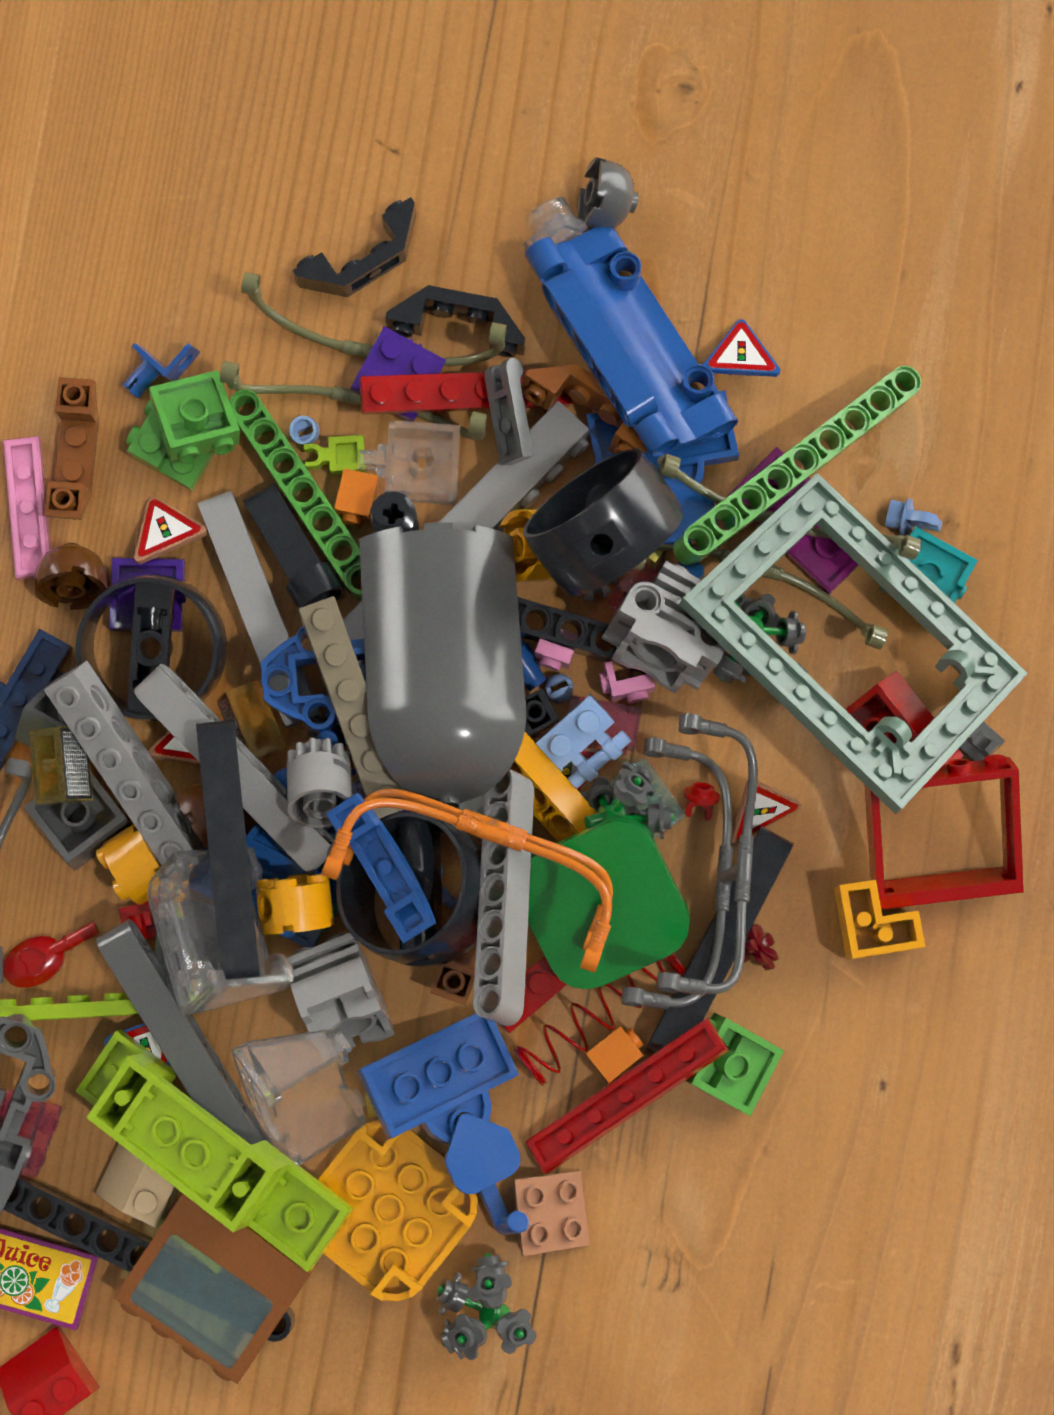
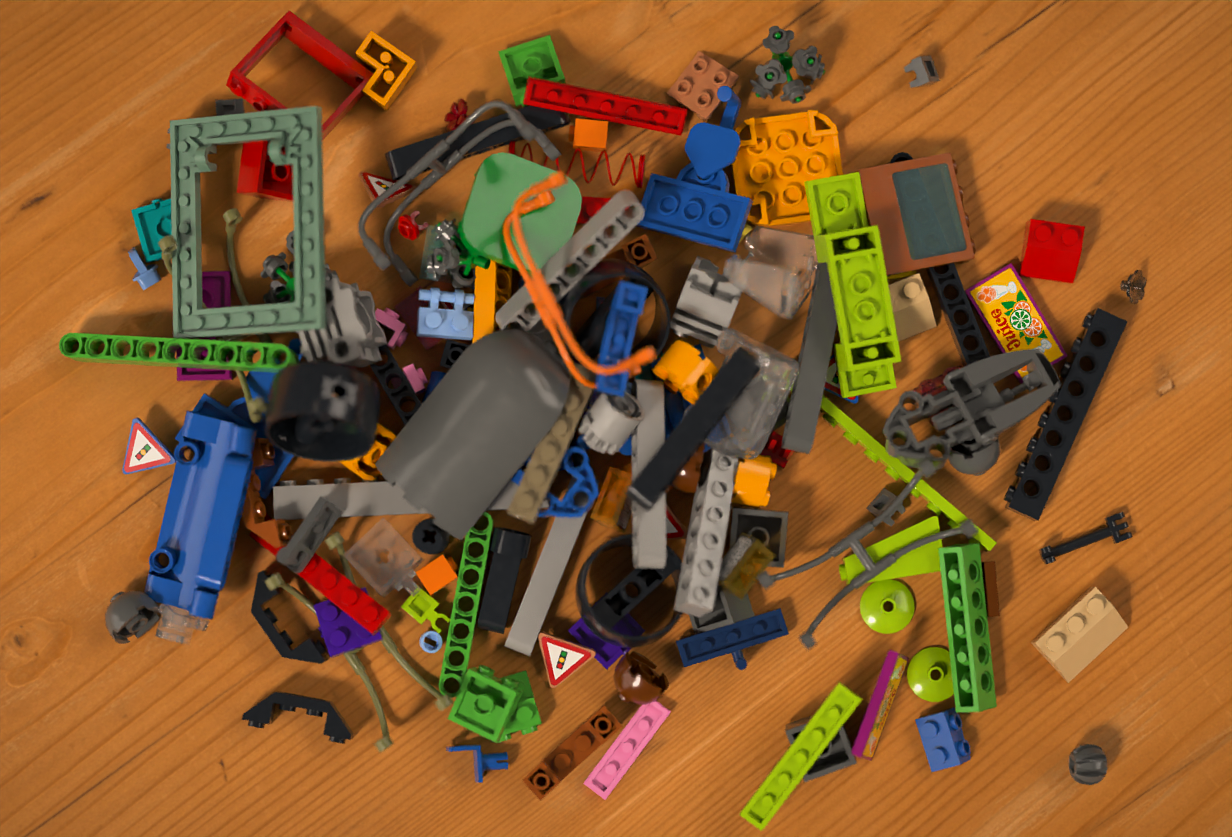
camera: 140 degrees left, 5 degrees up
(42, 957) = (850, 482): red piece -> none
(563, 694) = (426, 367): light blue hinge -> none

